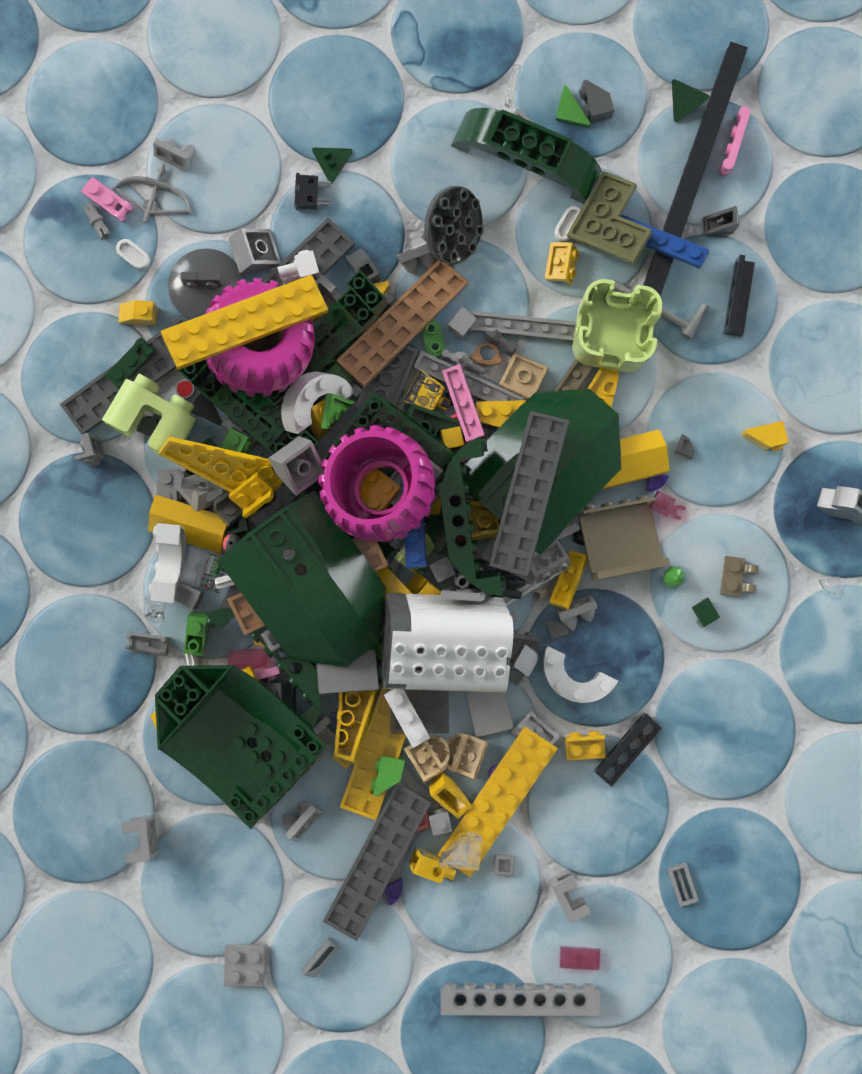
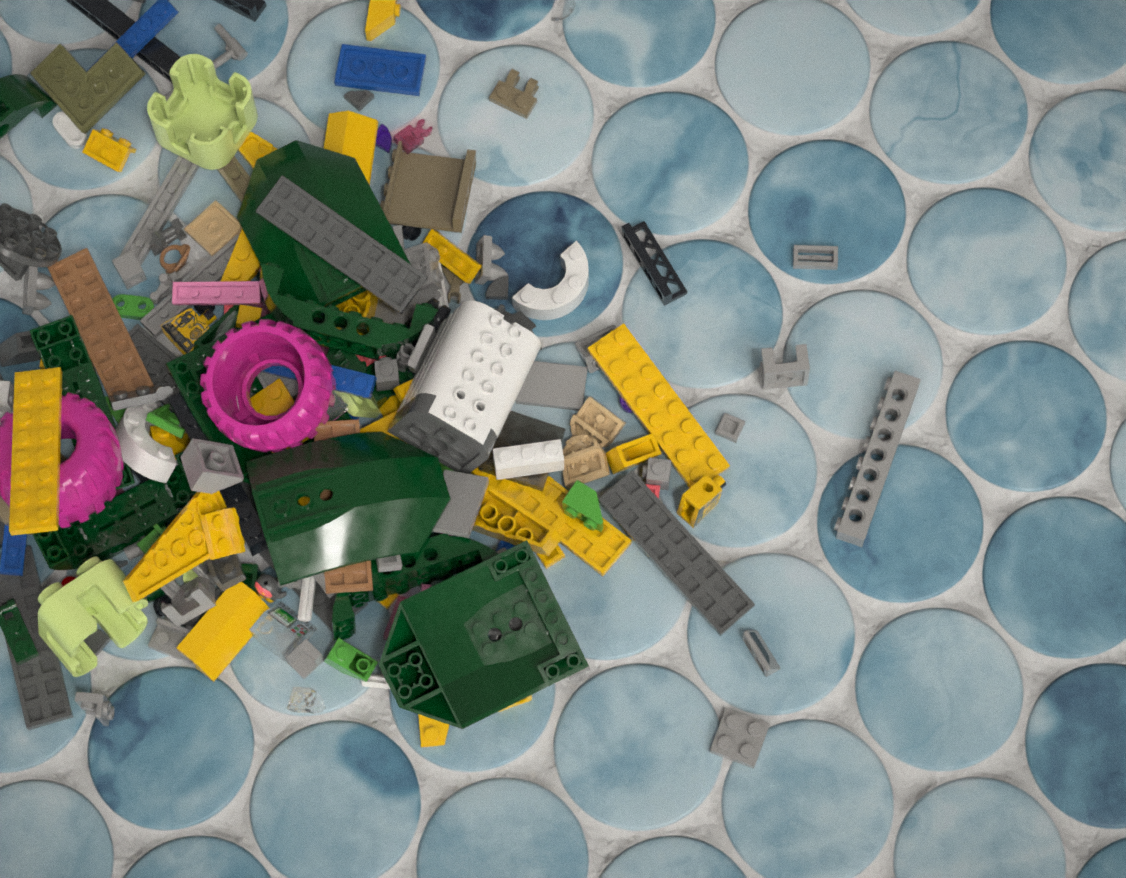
camera: 70 degrees left, 15 degrees down
(147, 837) = (557, 789): light grey panel -> none
(148, 643) = (340, 721): light grey hinge -> none
(170, 564) = (255, 662): white brick -> none
(299, 826) = (608, 627): light grey tile -> none
(348, 380) = (141, 395): none -> dark grey hinge
(393, 891) = (717, 550): dark purple tile -> none
(463, 852) = (695, 451): clear slope -> none
(579, 958) = (856, 385): clear pink plate -> none
(584, 746) = (634, 302): yellow bracket -> none
(673, 577) = (490, 154): bright green piece -> none
(705, 612) = (540, 134): dark green panel -> none
(716, 455) = (380, 70): none -> blue plate

